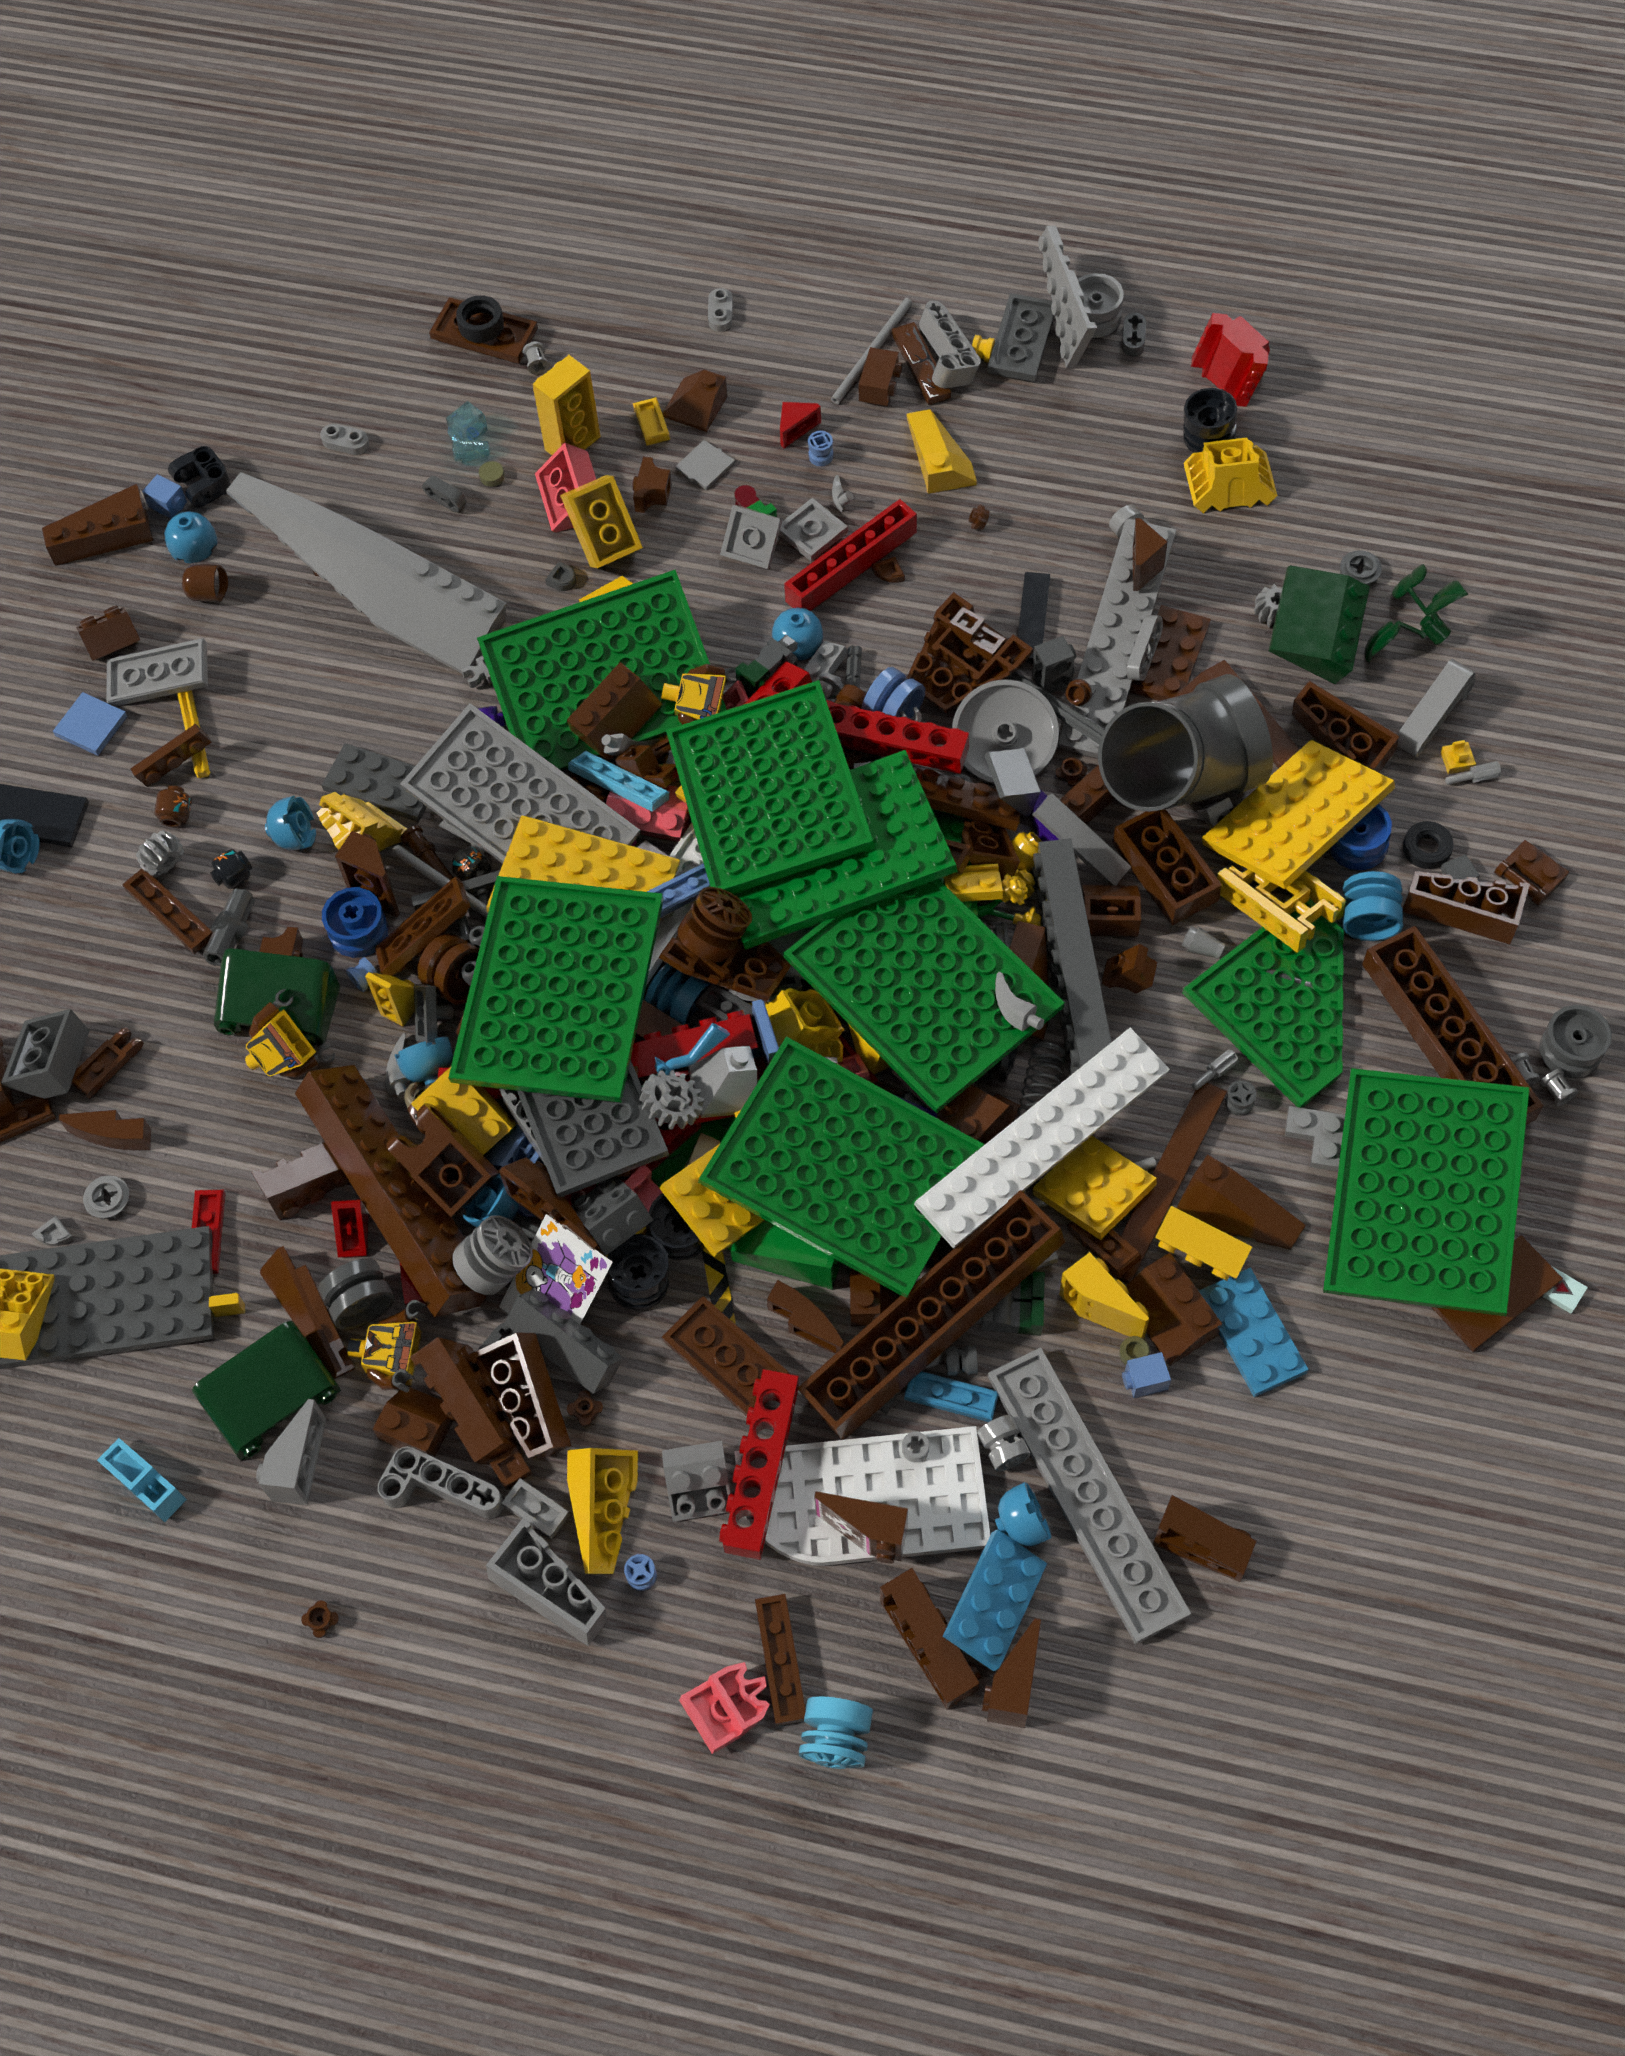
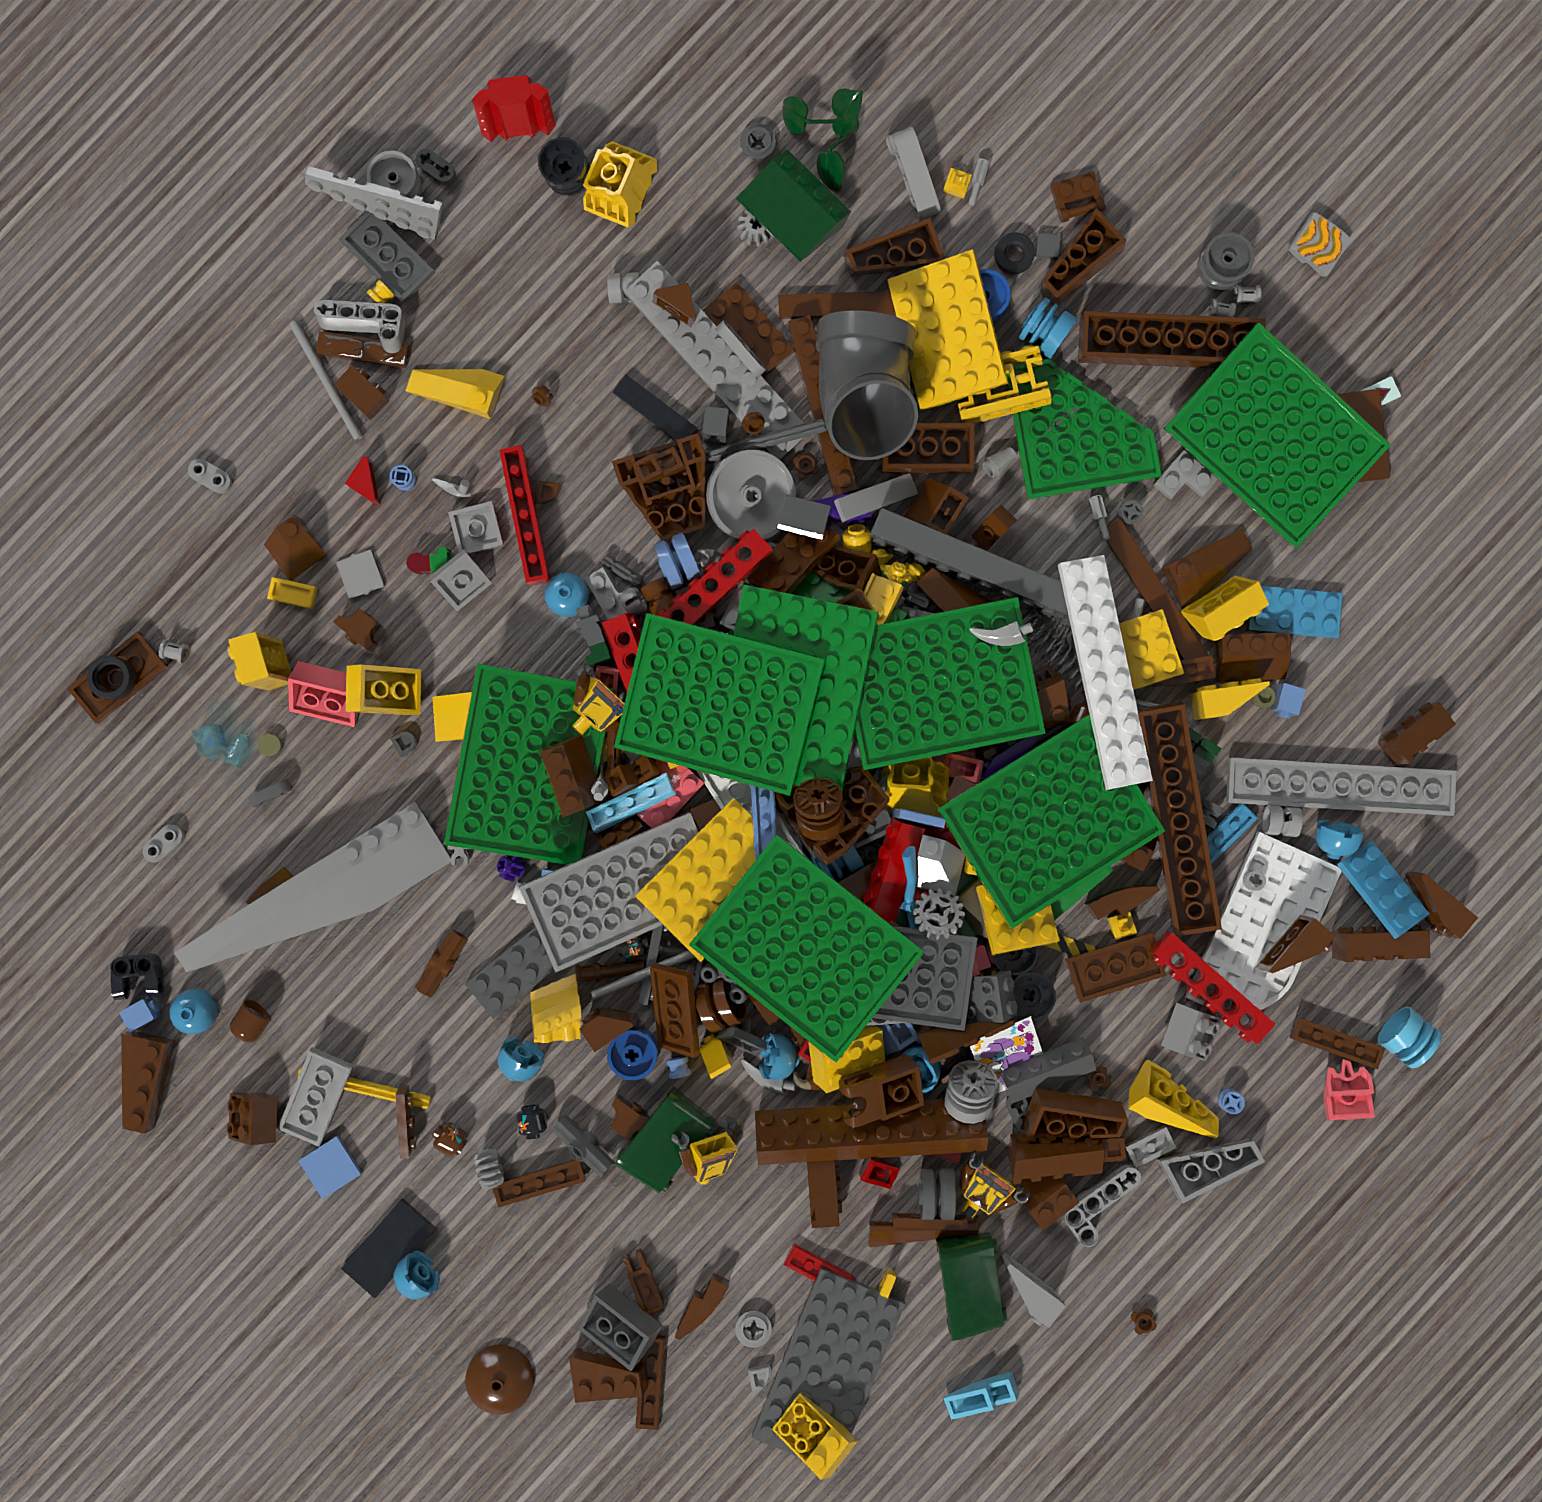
camera: 65 degrees left, 25 degrees up
(354, 712) = (441, 963): none -> reddish brown piece
(777, 1340) = (1121, 925): none -> yellow tile

